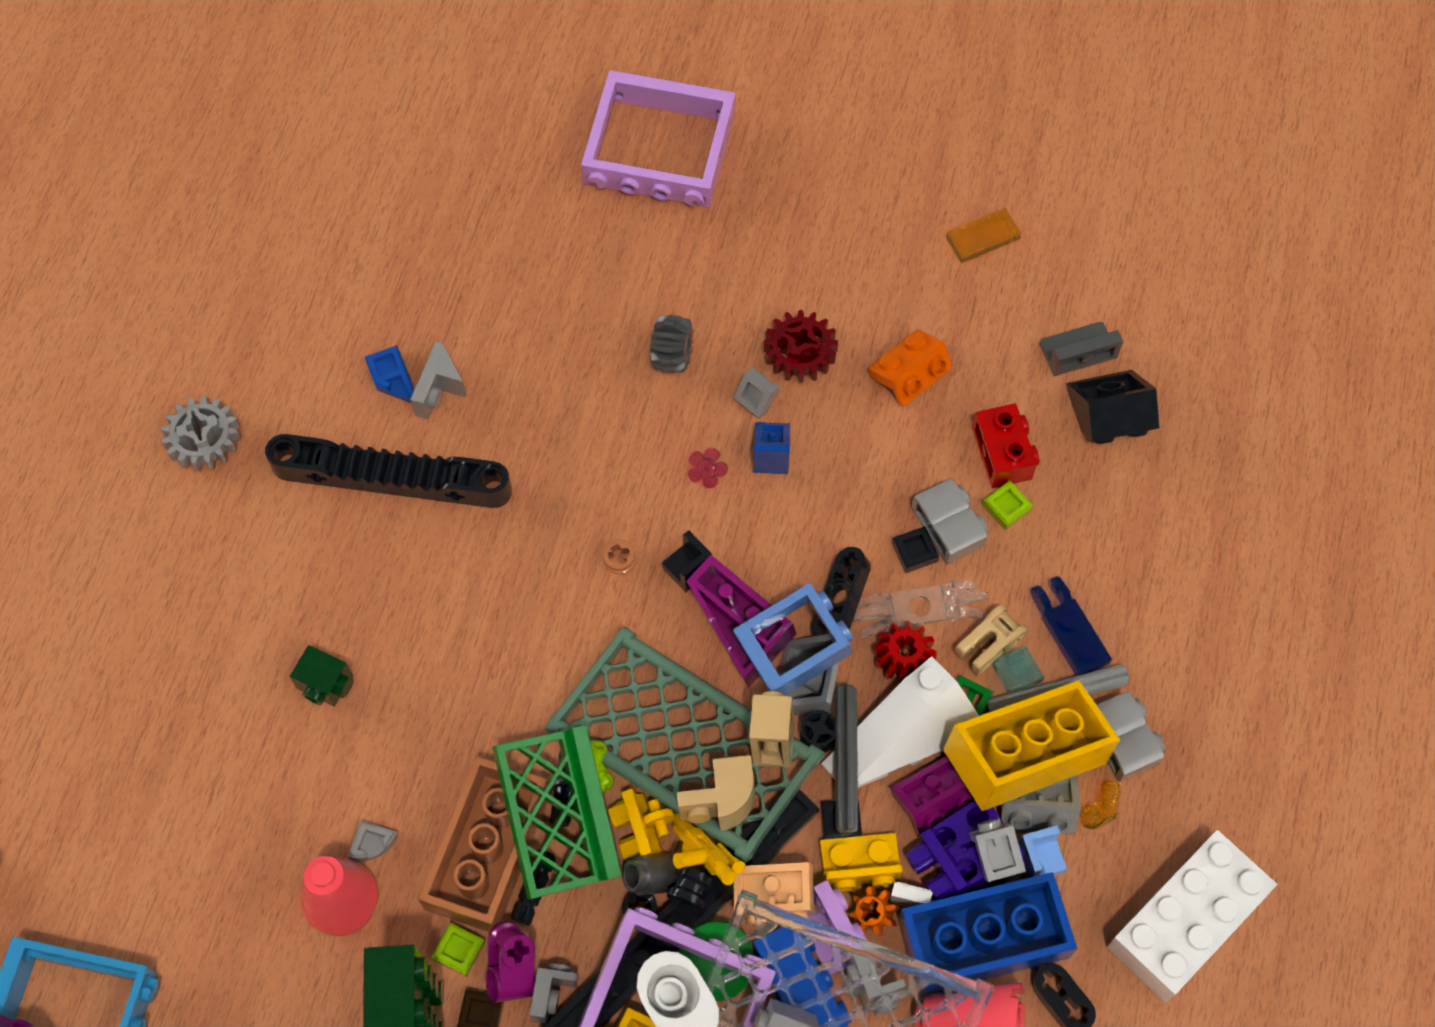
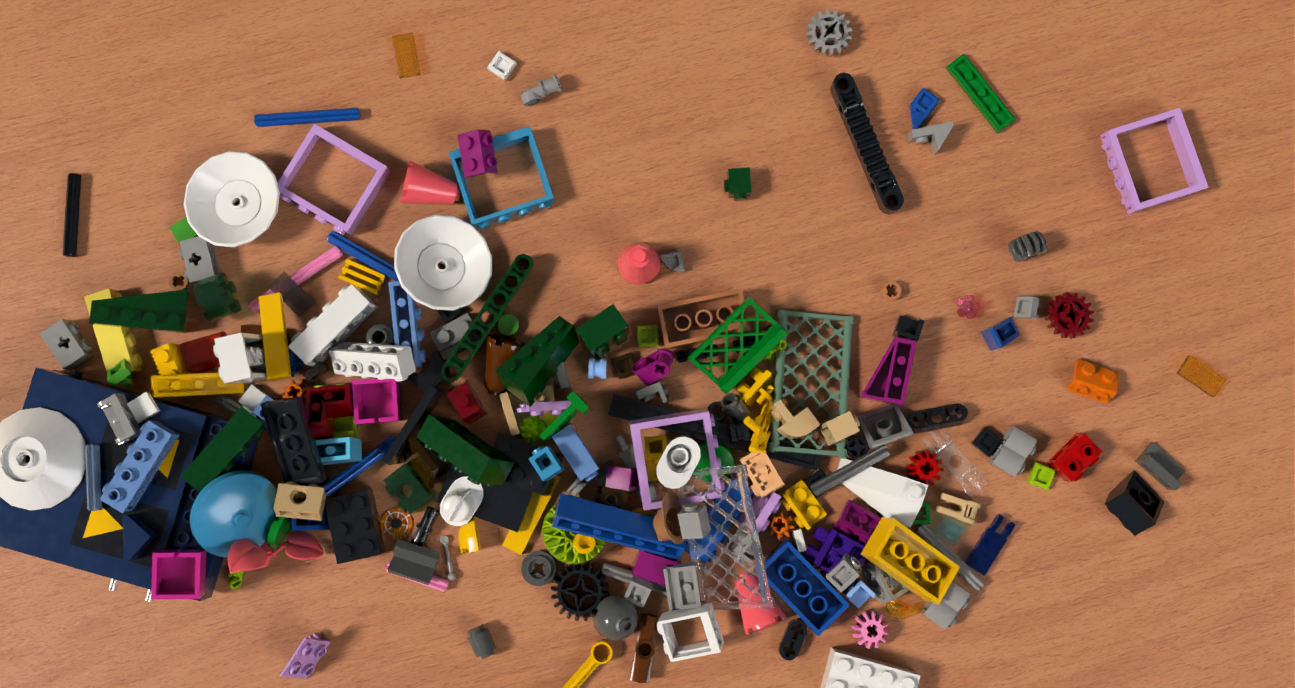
camera: 55 degrees right, 20 degrees up
(424, 292) = (980, 93): none -> green tile
(812, 666) = (872, 401): medium blue window -> none
(1113, 856) = (864, 635): none -> bright pink gear

